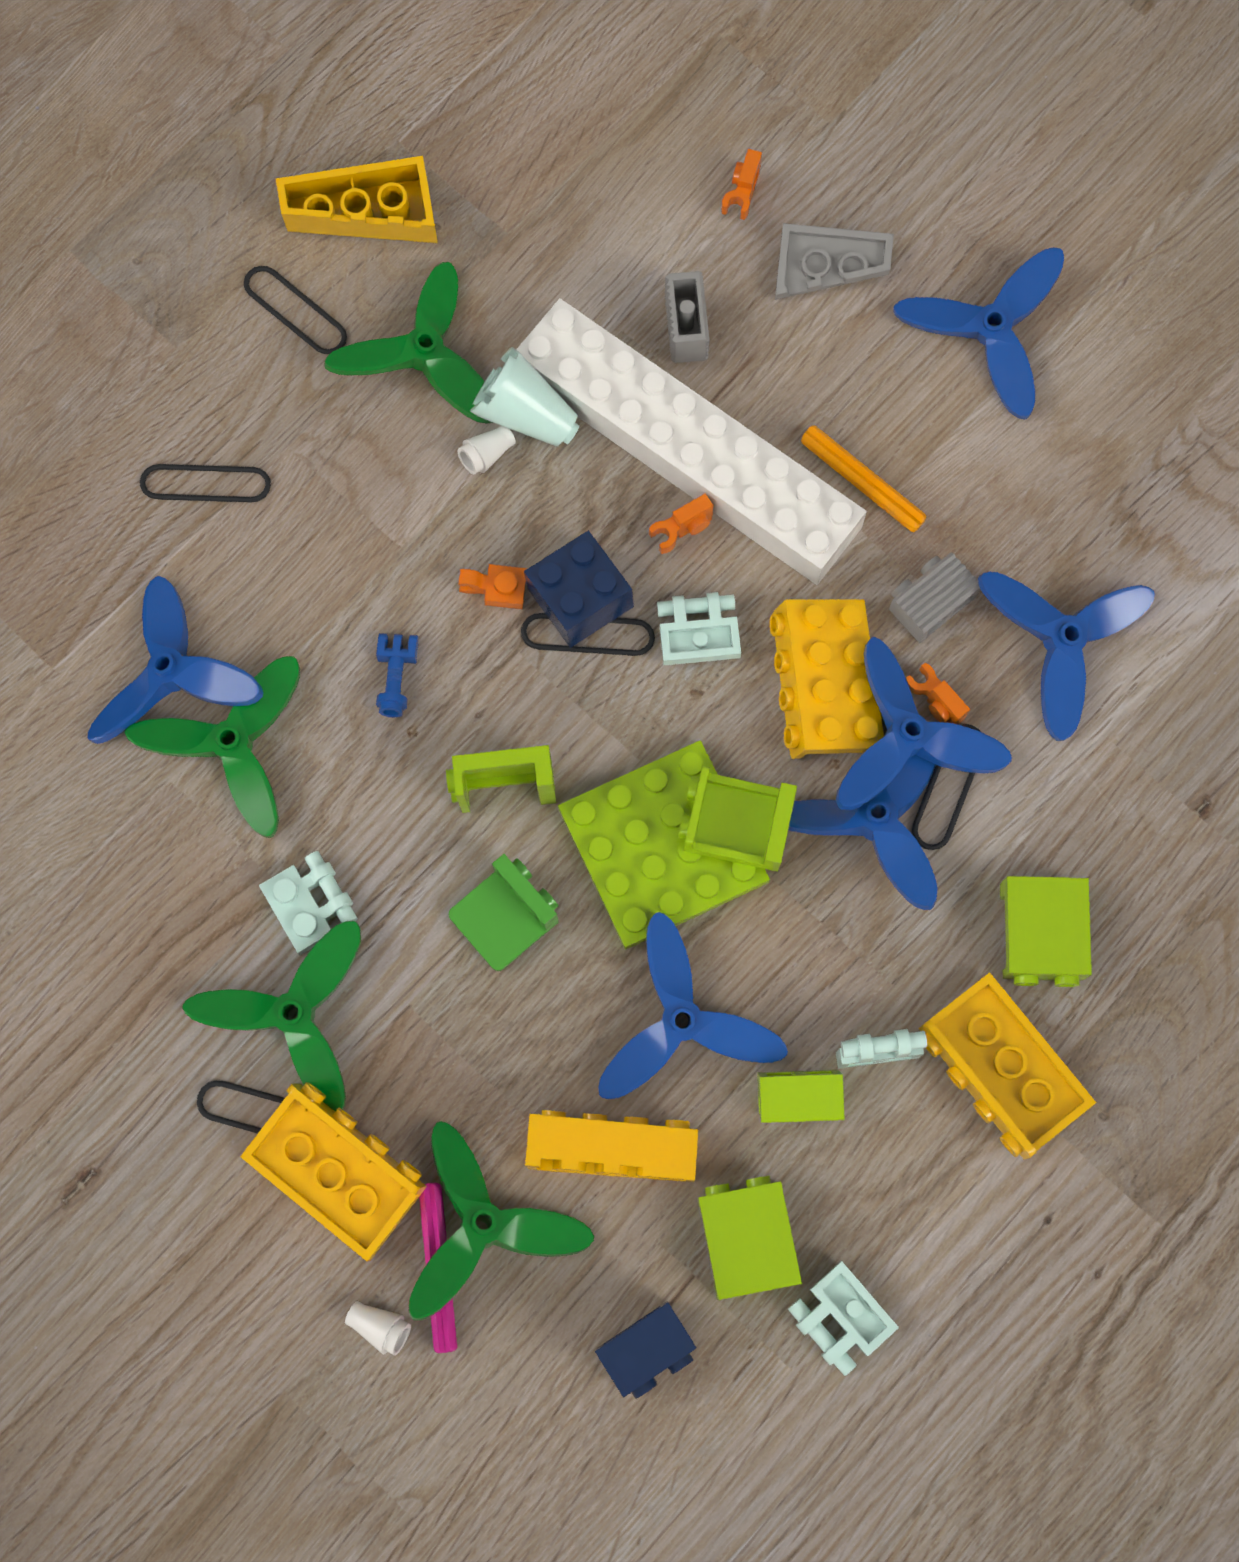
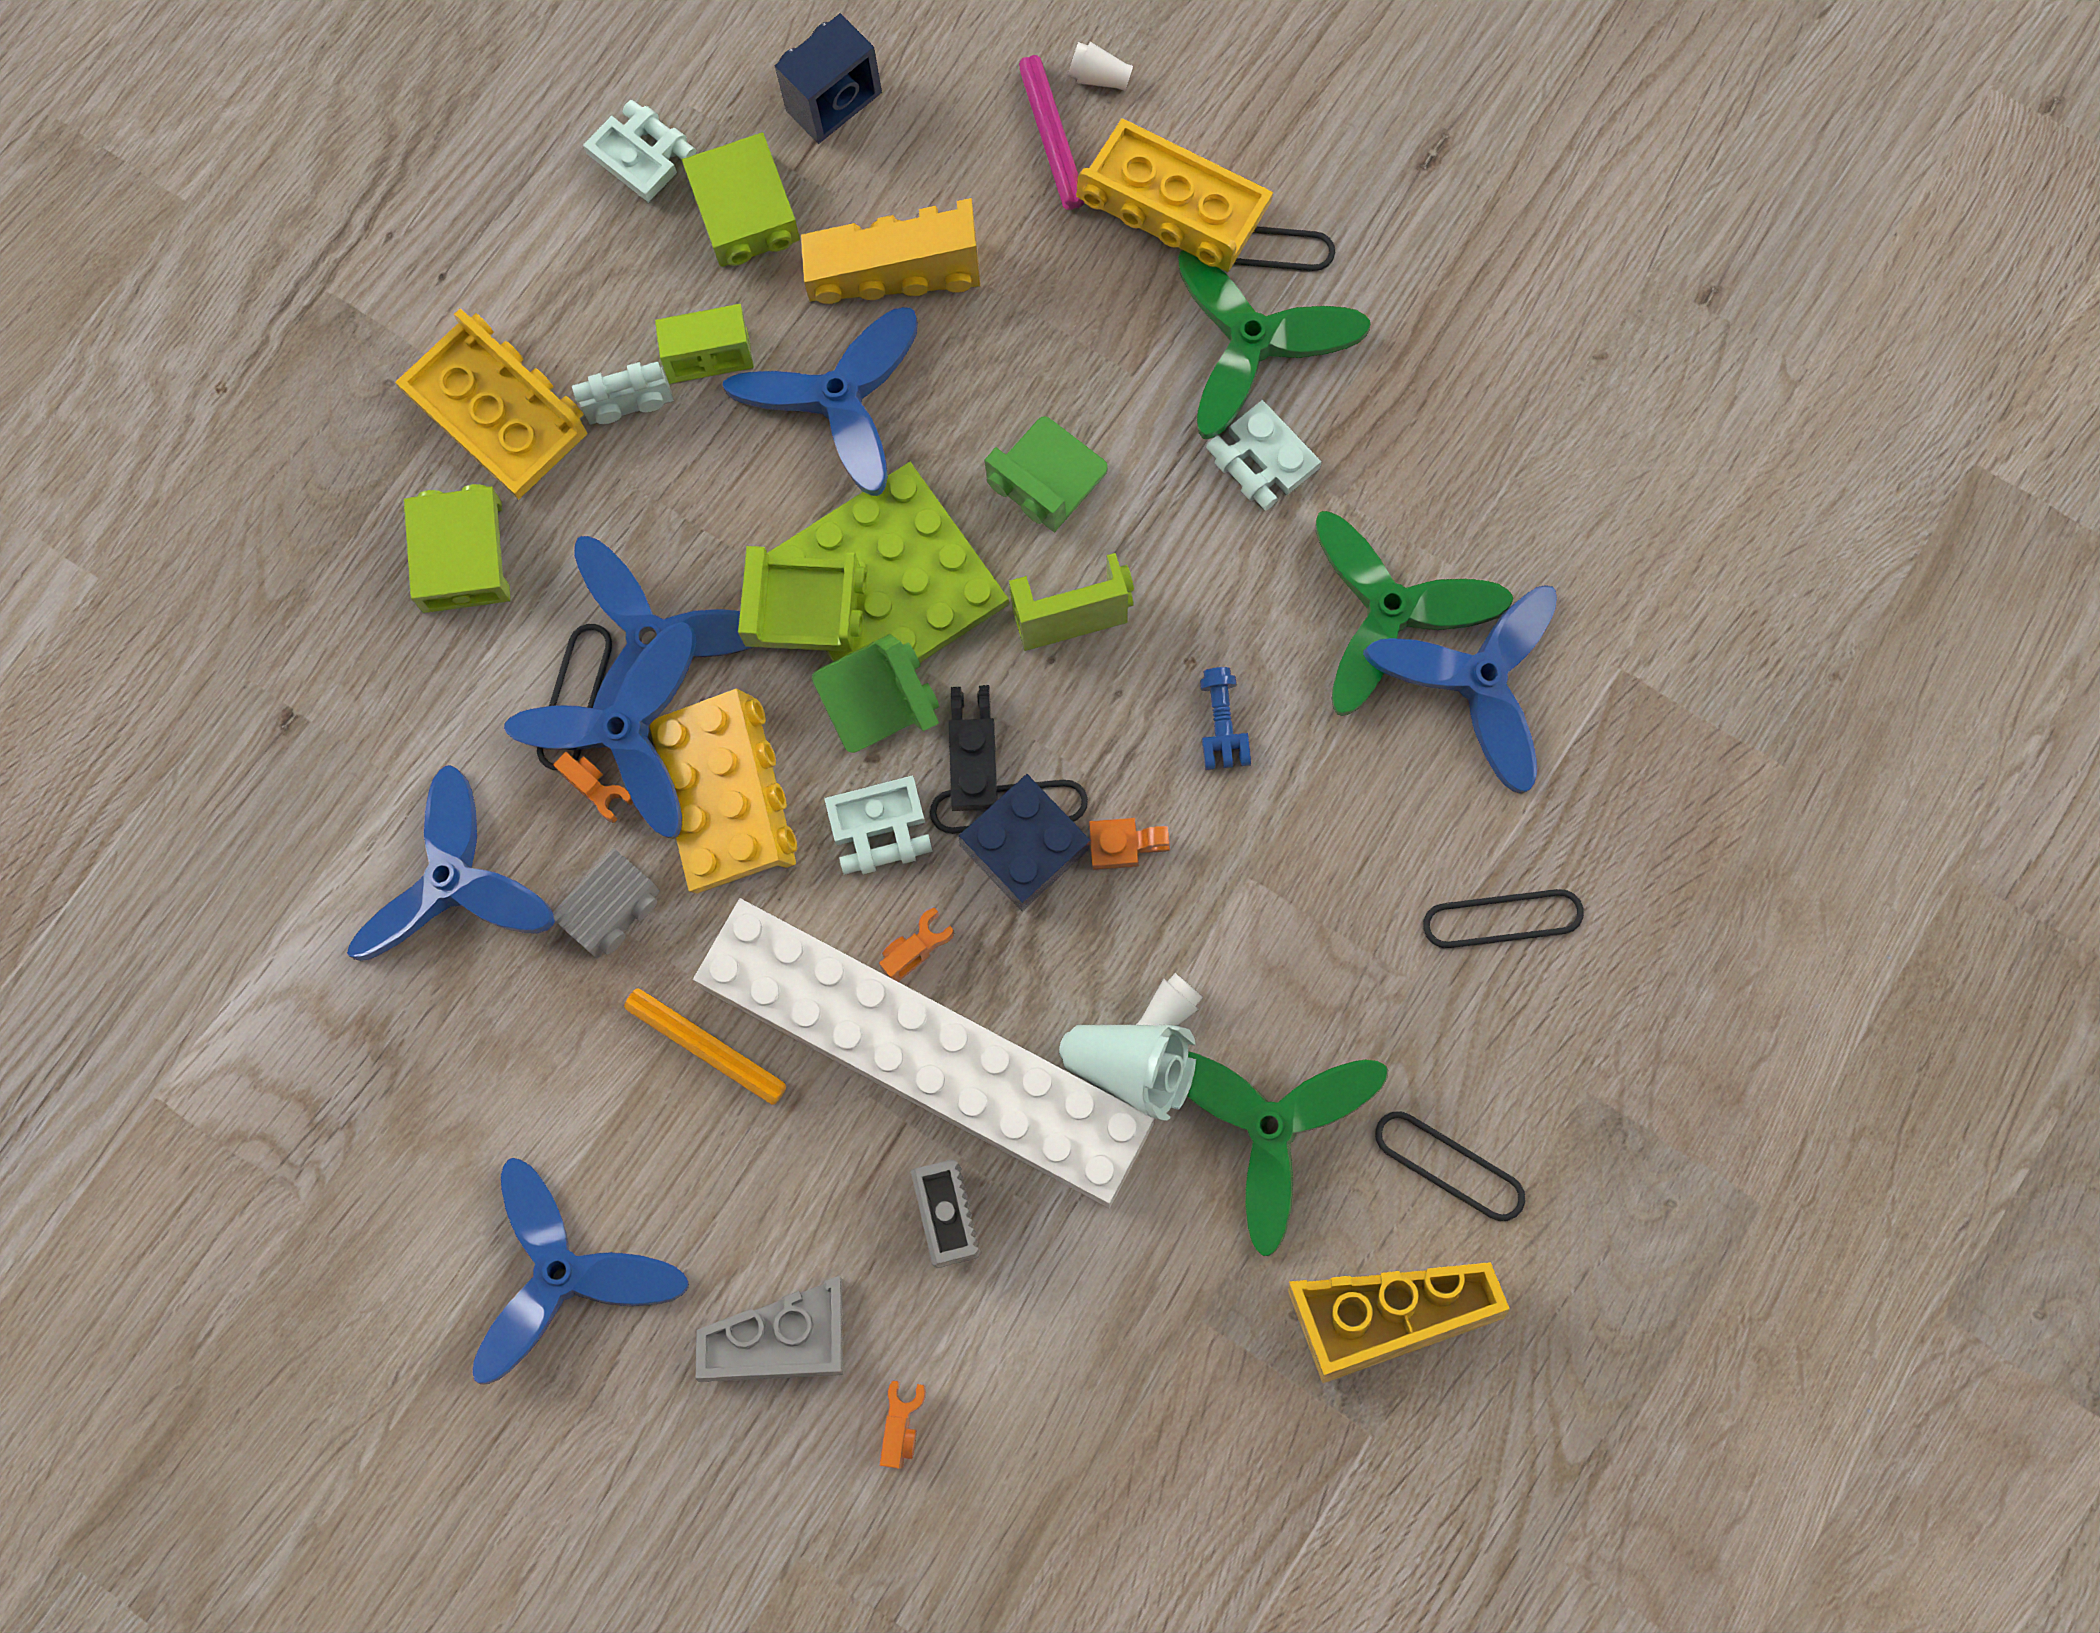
camera: 175 degrees right, 0 degrees up
(517, 1230) = (1026, 141): green piece -> none
(610, 676) = (972, 754): none -> black hinge
(685, 732) = (875, 693): none -> bright green bracket

